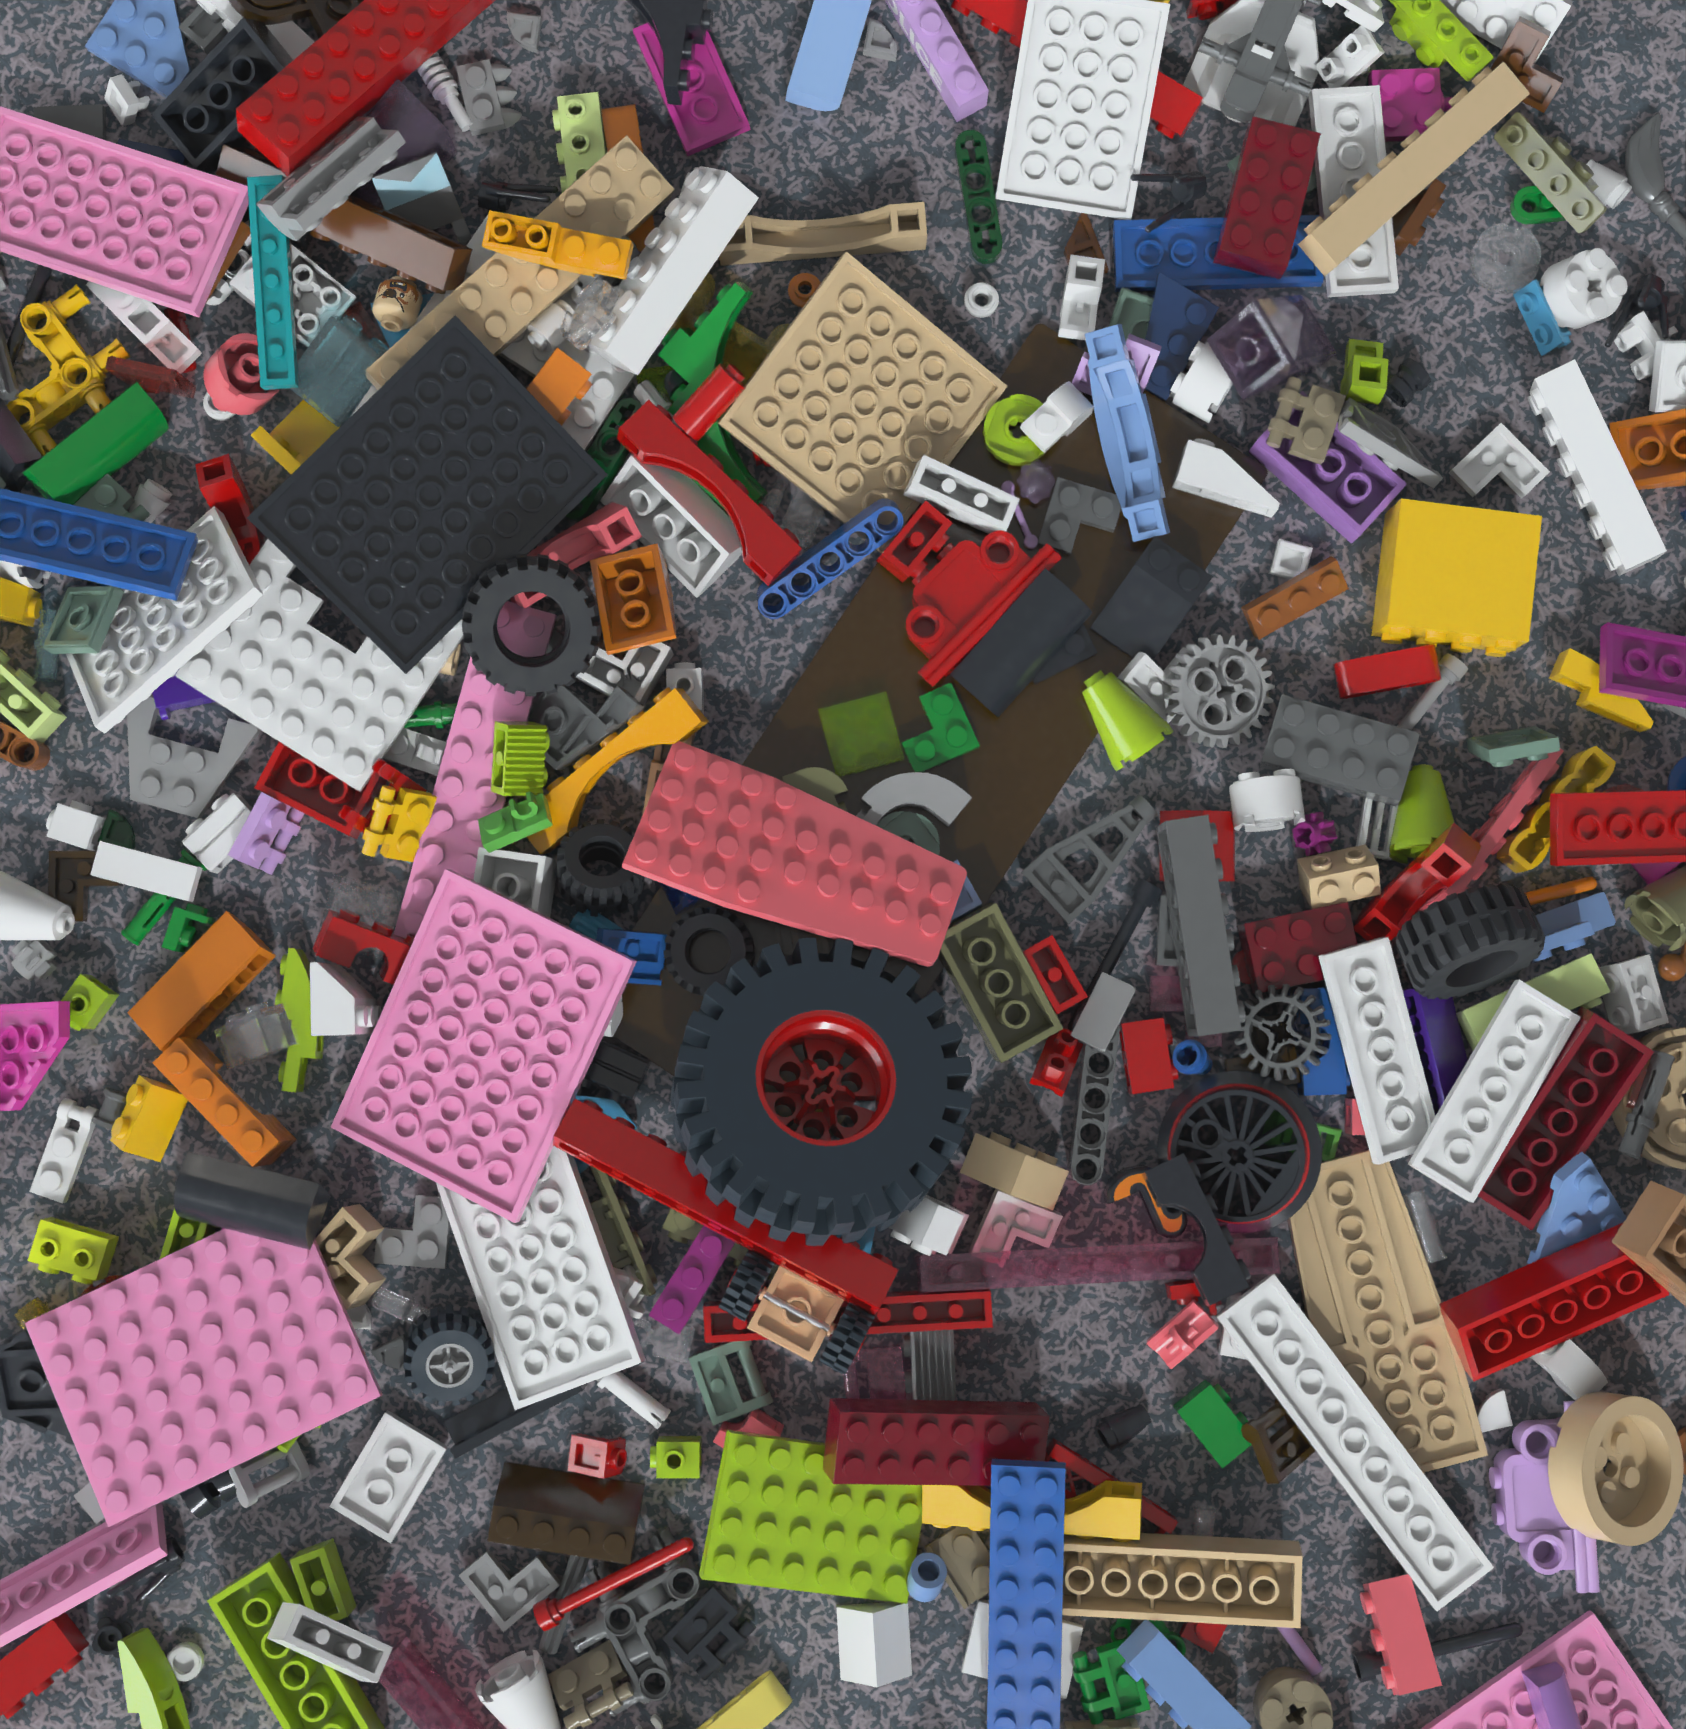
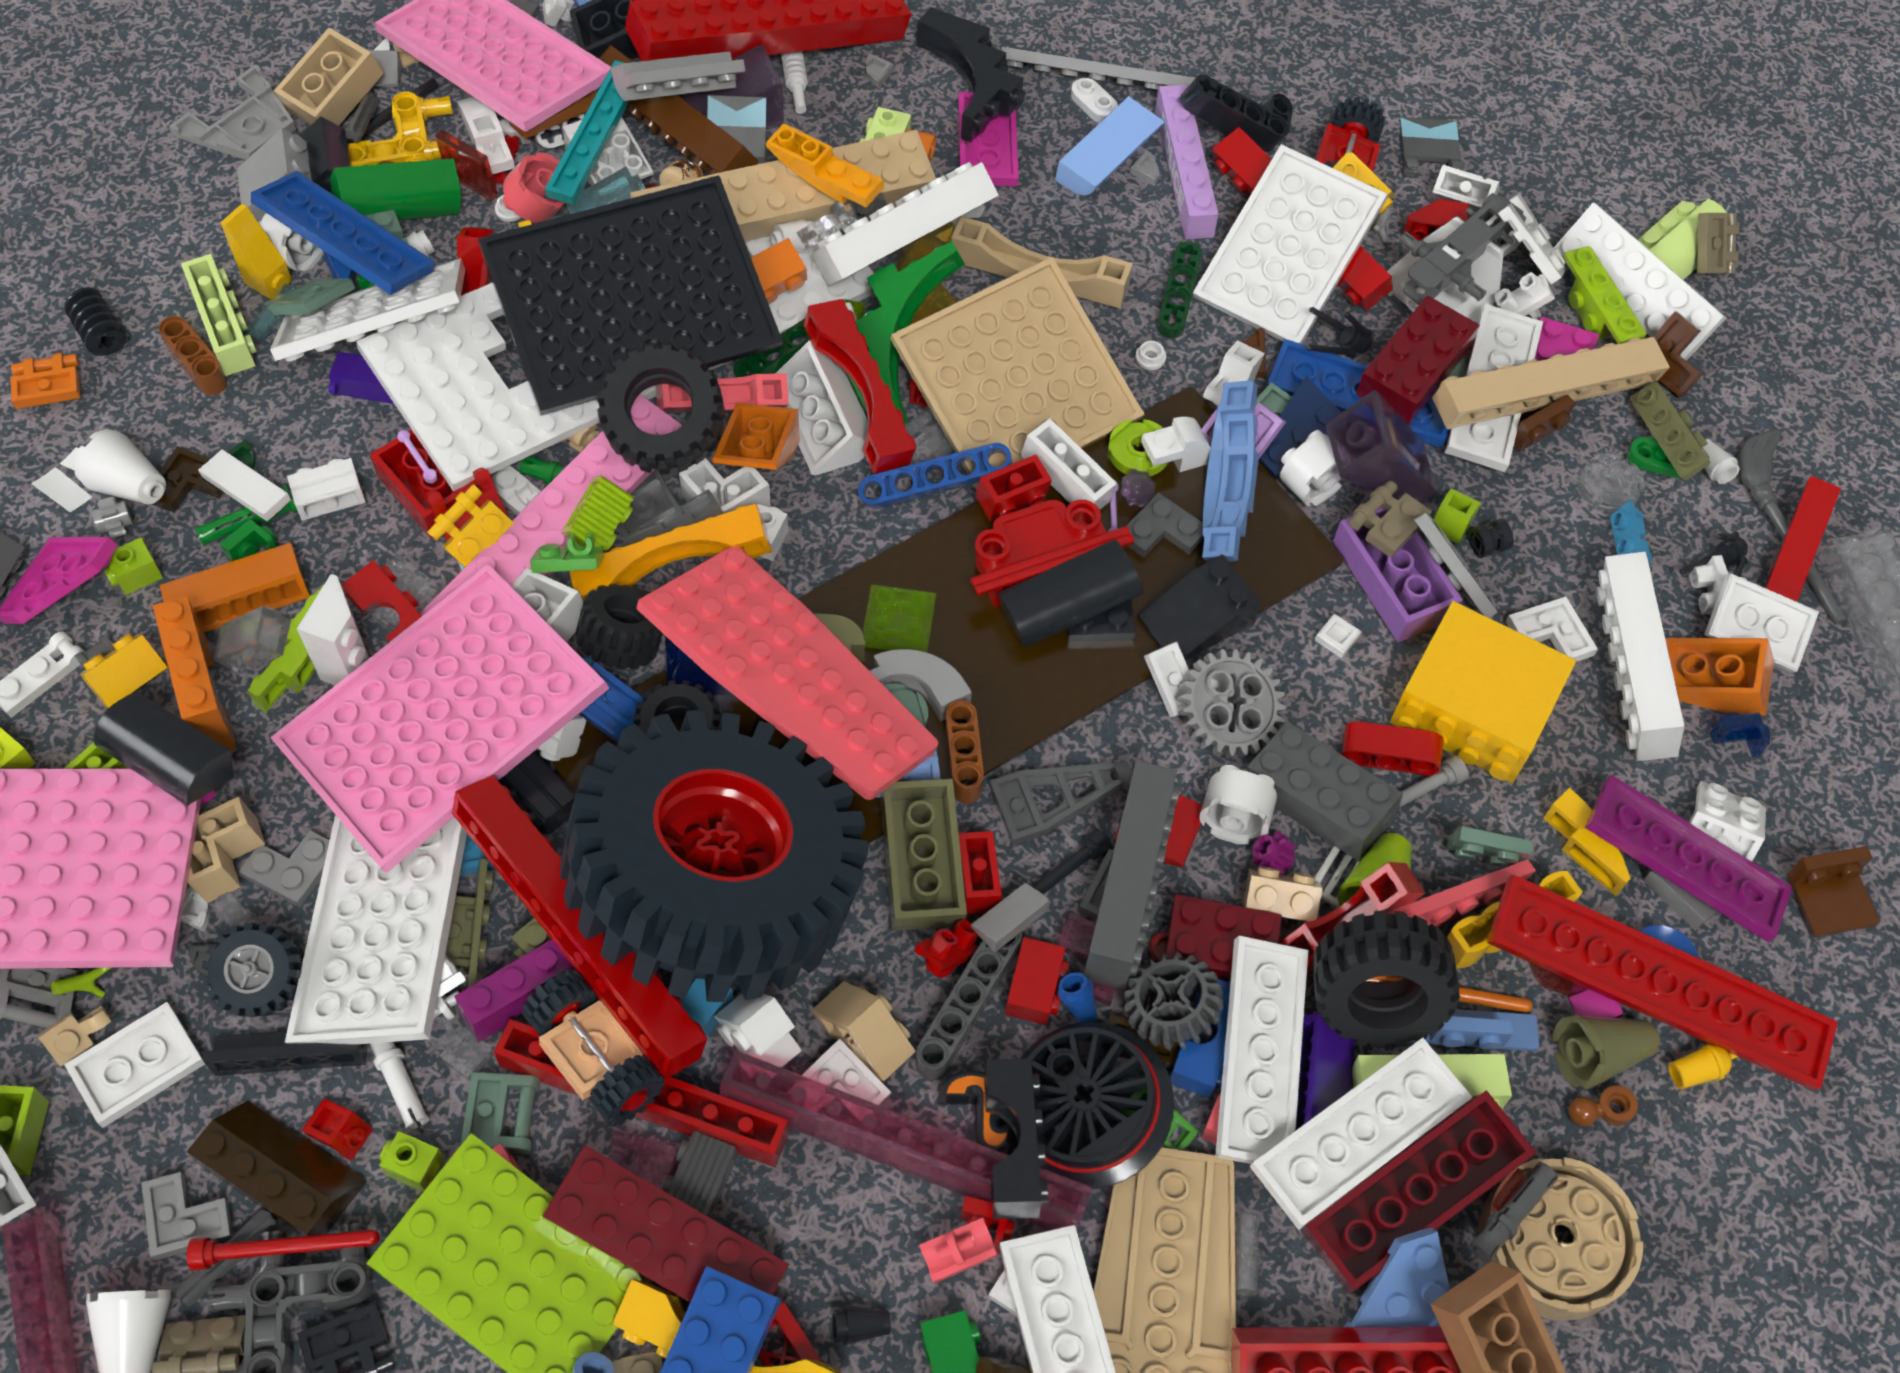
camera: 20 degrees right, 25 degrees down
(75, 825) = (210, 435): white brick -> none
(179, 774) = (314, 436): light grey wing -> none
(259, 831) = (355, 489): lavender plate -> none
(319, 1477) = (71, 1036): none -> tan plate
(328, 787) = (429, 474): none -> lavender hinge
(484, 98) = (824, 98): light grey plate -> none
(710, 400) = (892, 317): red brick -> none
(949, 735) = (976, 647): green plate -> none
(987, 839) = (964, 737): none -> dark orange beam
(1122, 719) = (1135, 691): lime cone -> none
(1218, 477) = (1297, 542): white slope -> none
(1295, 597) = (1330, 662): dark orange plate -> none
(1583, 288) = (1672, 521): white brick -> none
(1634, 995) = (1539, 1115): white bracket -> none

